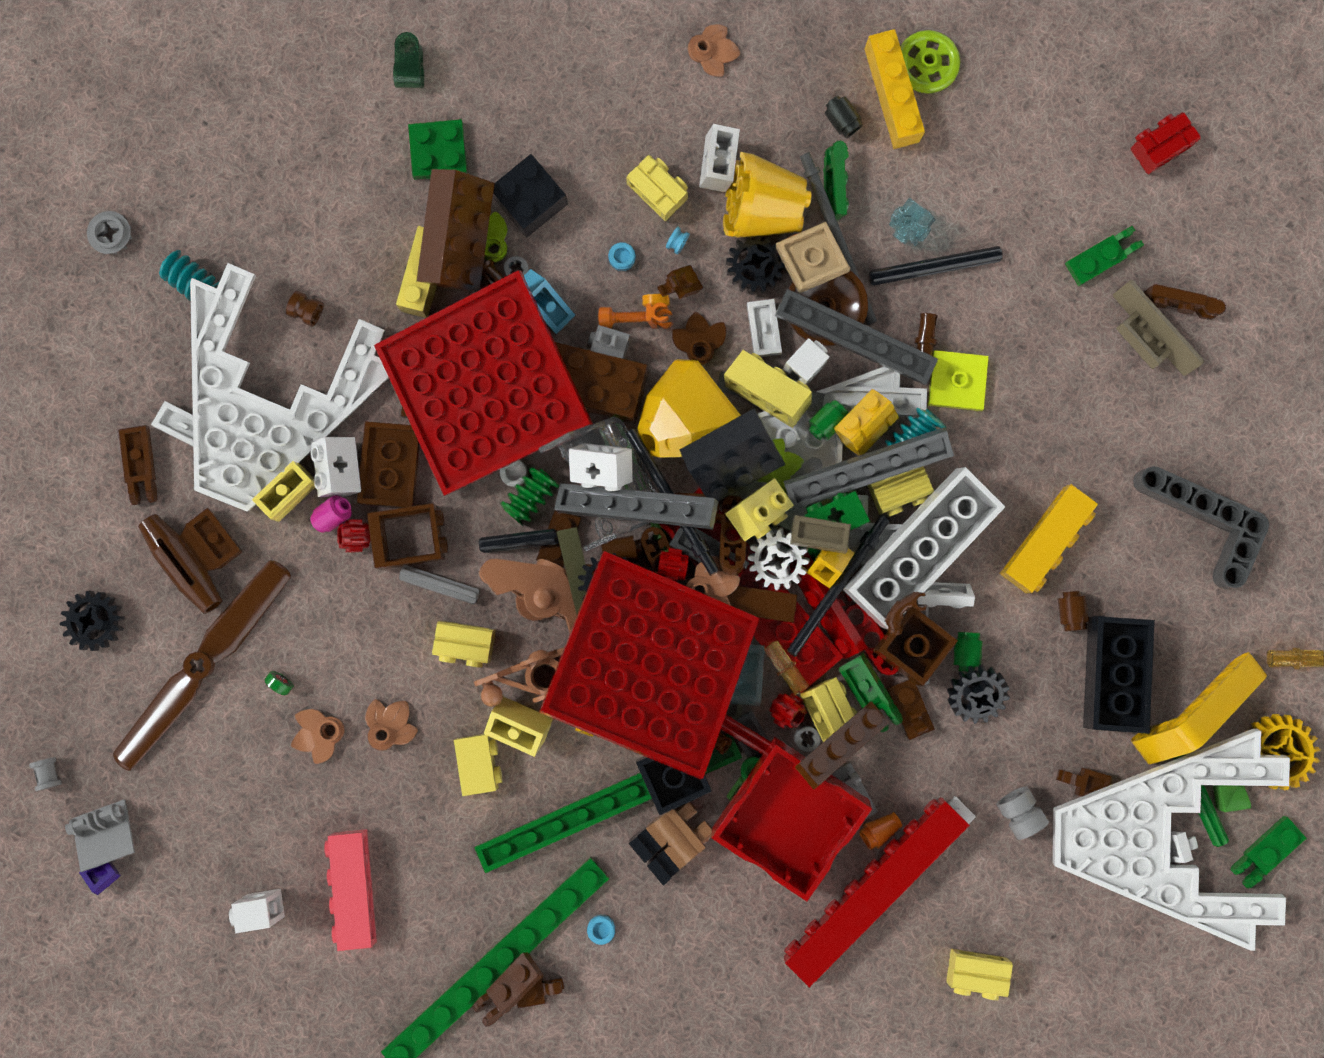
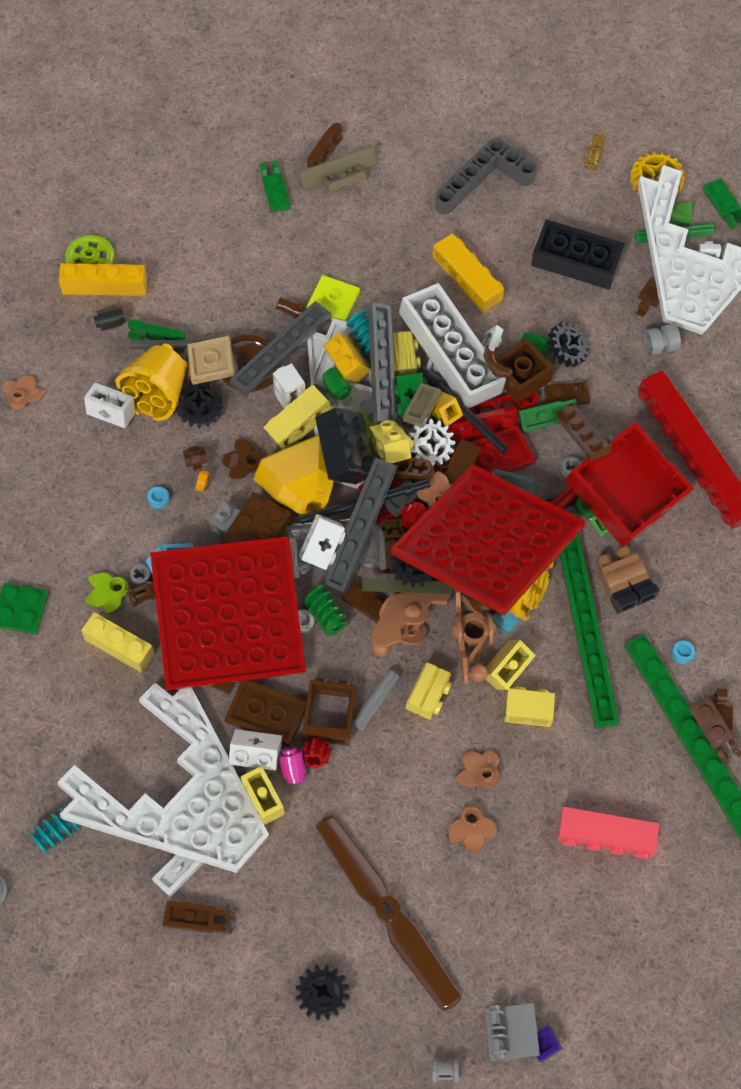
camera: 75 degrees left, 20 degrees down
(189, 556) = (291, 891): reddish brown plate -> none
(257, 911) = (608, 908): white brick -> none
(278, 683) = (421, 847): green tile -> none
(305, 308) = (113, 743): reddish brown wheel -> none
(455, 230) = (98, 599): reddish brown brick -> none
(518, 540) = (359, 628): black axle -> none
(529, 195) = (86, 547): black brick -> none
(608, 317) = (213, 482): orange bar -> none
(658, 187) = (114, 455): light yellow brick -> none
(669, 786) = (580, 560): black brick -> none
(677, 240) = (161, 453): medium azure bush -> none
(764, 328) = (249, 412): white plate -> none
(786, 667) = (514, 461): clear yellow axle -> none
(787, 711) = (547, 472): red gear -> none
(828, 706) = (552, 444): light yellow brick -> none
(880, 830) = (654, 433): orange cone -> none
(911, 223) = (202, 289): clear light blue brick -> none
(935, 265) = (243, 291): black axle -> none
(1073, 611) = (524, 271): reddish brown brick -> none
(1164, 143) = (208, 128): red brick -> none
(1204, 714) = (623, 209): yellow beam -> none

